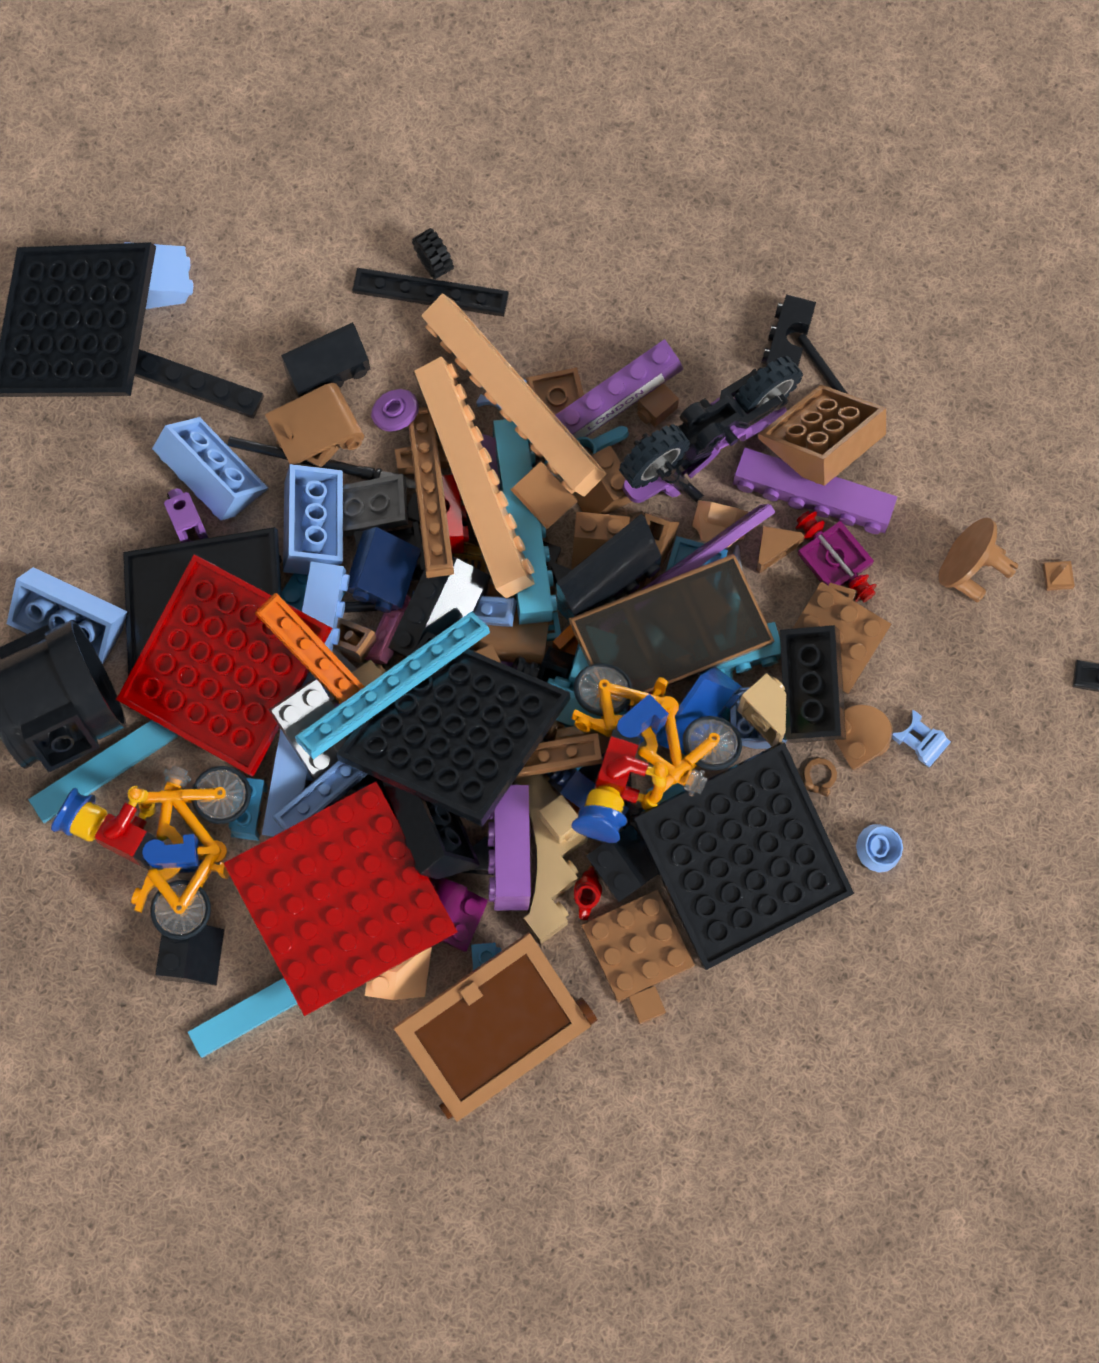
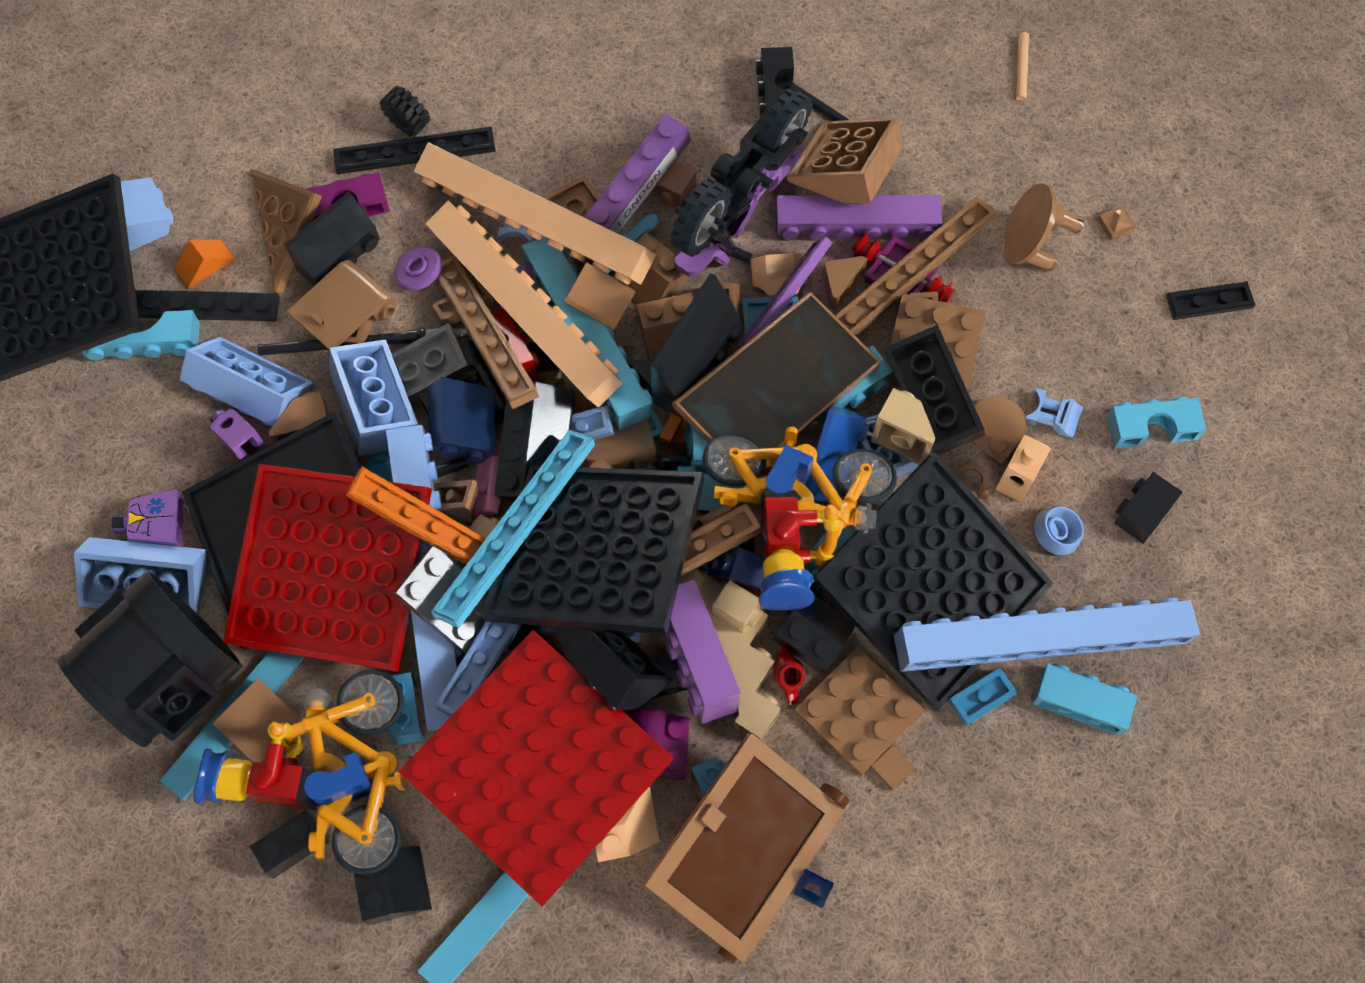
camera: 20 degrees left, 5 degrees down
(91, 569) = (153, 519): none -> medium lavender torso
(114, 889) = (285, 844): none -> black brick
(119, 773) = (249, 717): none -> medium nougat tile
(160, 402) = (171, 334): none -> medium azure arch
(206, 339) = (201, 260): none -> orange slope
(245, 517) = (299, 414): none -> medium nougat slope
(291, 325) = (284, 213): none -> medium nougat tile
(371, 319) = (365, 189): none -> magenta arch
(539, 1071) = (824, 884): none -> clear blue slope
(750, 971) = (982, 697): none -> dark azure plate
(824, 937) = (1044, 635): none -> light blue brick
(838, 1004) = (1085, 699): none -> medium azure brick
(846, 558) = (916, 265): none -> medium nougat tile
(869, 779) = (1025, 465): none -> light nougat torso
(968, 854) = (1148, 506): none -> black brick
(1034, 389) = (1022, 66): none -> light nougat bar
(1034, 780) = (1179, 417): none -> medium azure arch

